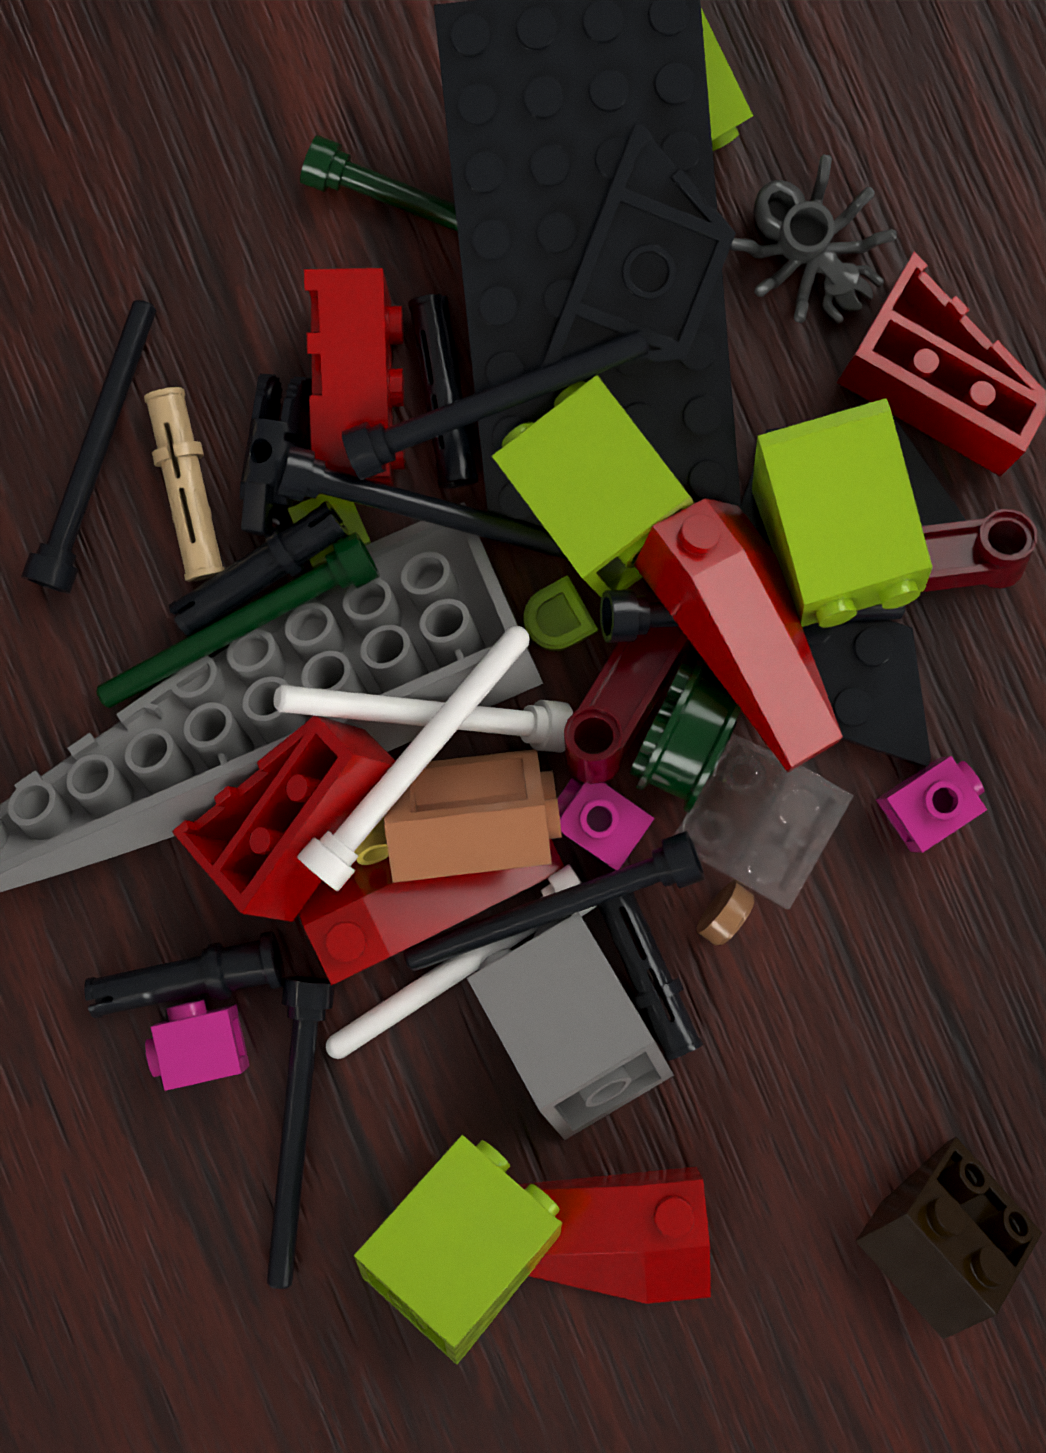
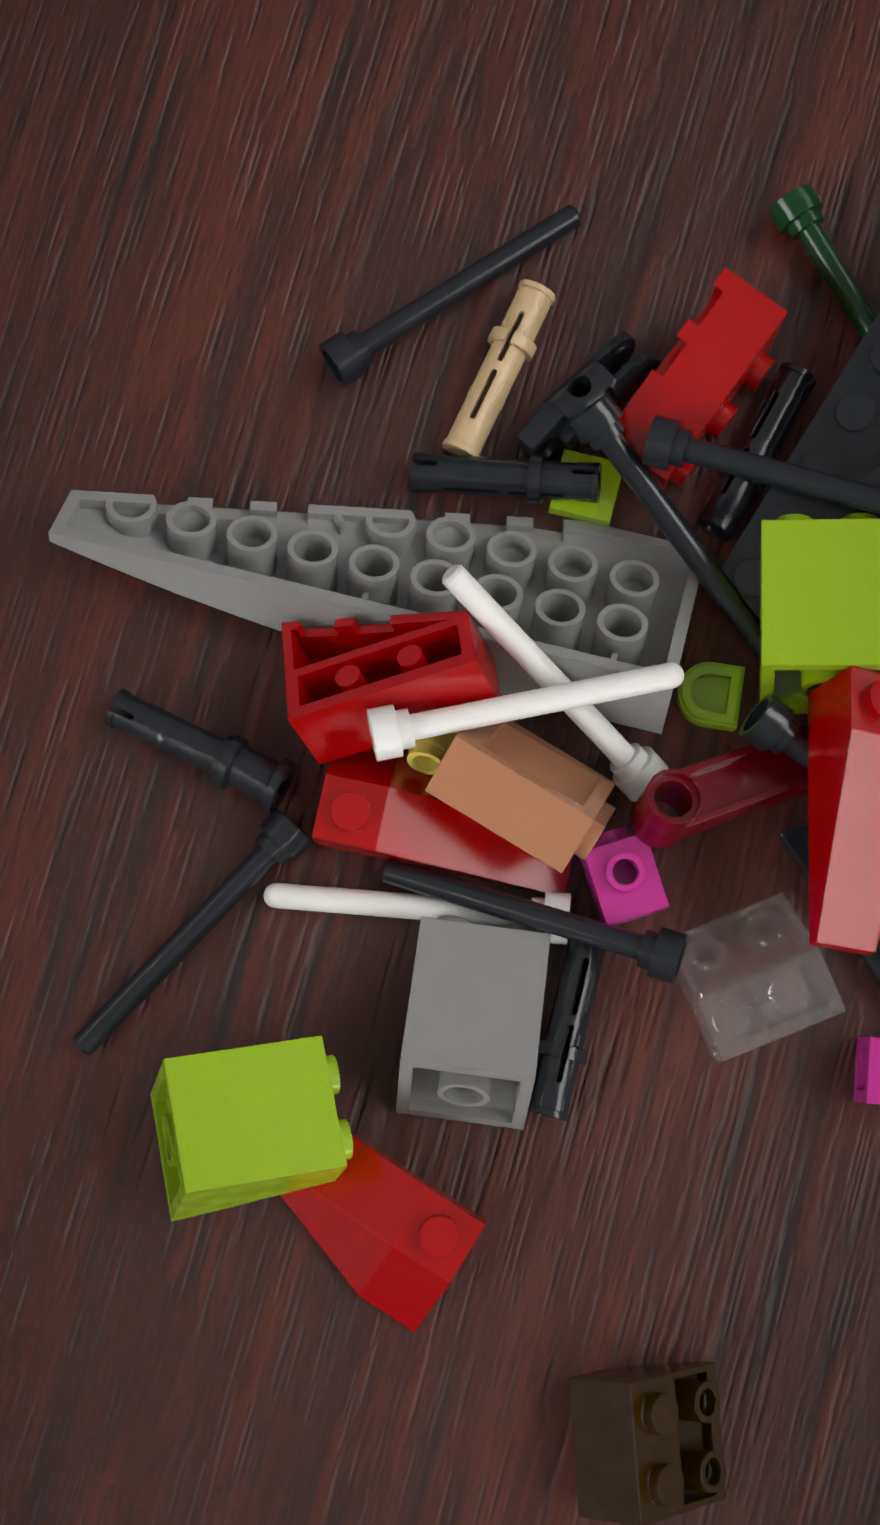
camera: 40 degrees right, 5 degrees down
(196, 1045) = (168, 805): dark pink brick -> none
(345, 566) = (576, 525): dark green piece -> none
(687, 735) = (746, 861): dark green wheel -> none
(726, 914) = (666, 1031): medium nougat tile -> none

